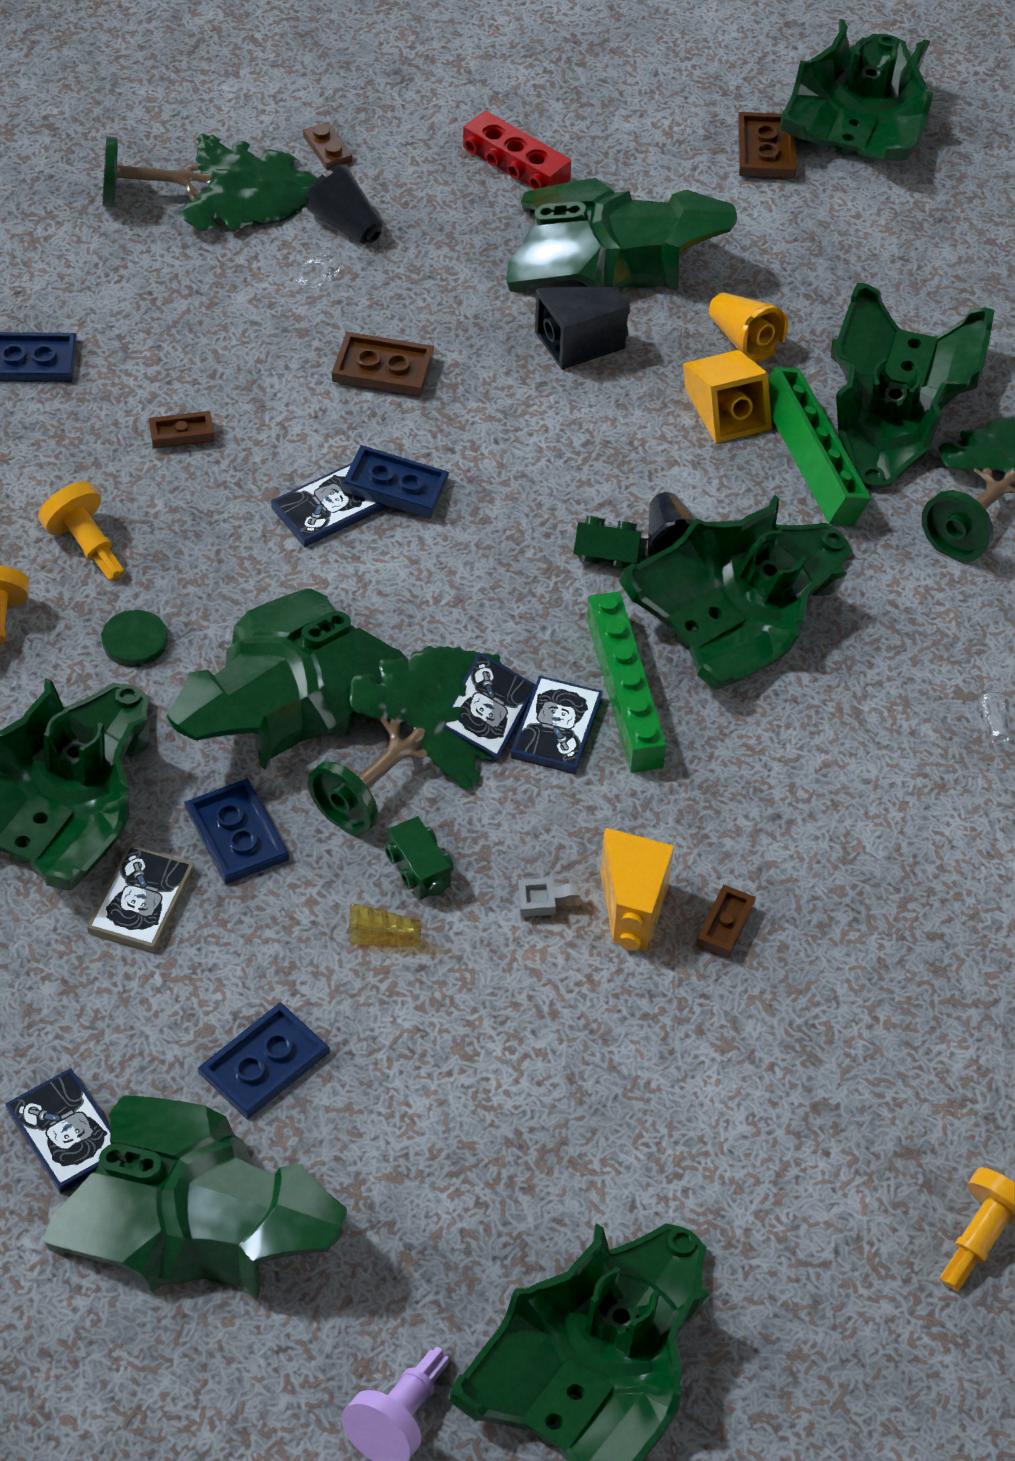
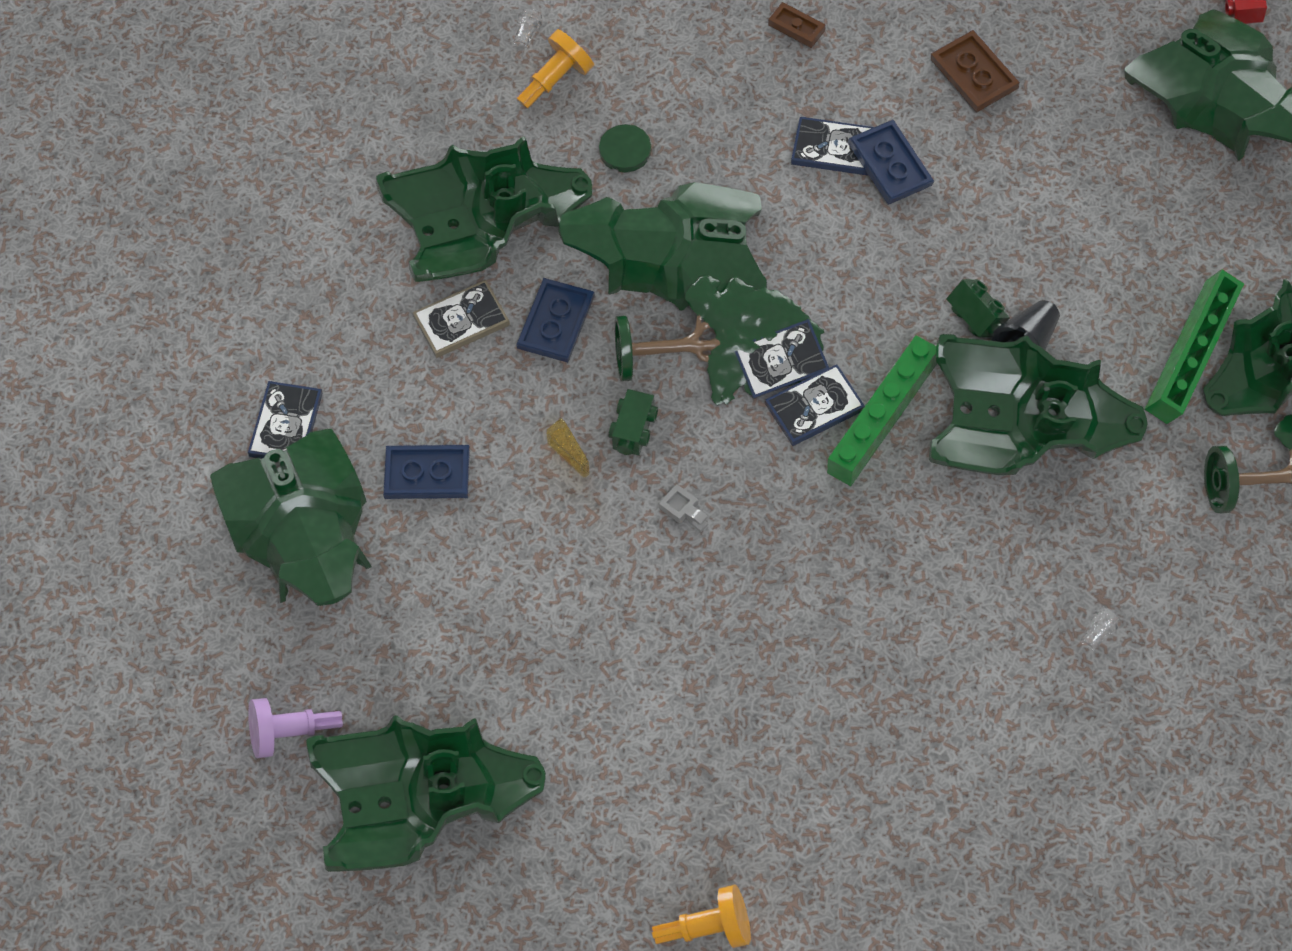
camera: 50 degrees right, 10 degrees up
(73, 511) = (664, 33): light orange piece -> none
(581, 322) = (1133, 139): black slope -> none
(634, 885) = (732, 546): light orange slope -> none
(725, 921) = (773, 613): reddish brown plate -> none
(729, 395) = (1180, 265): light orange slope -> none
(749, 324) = (1253, 226): light orange cone -> none

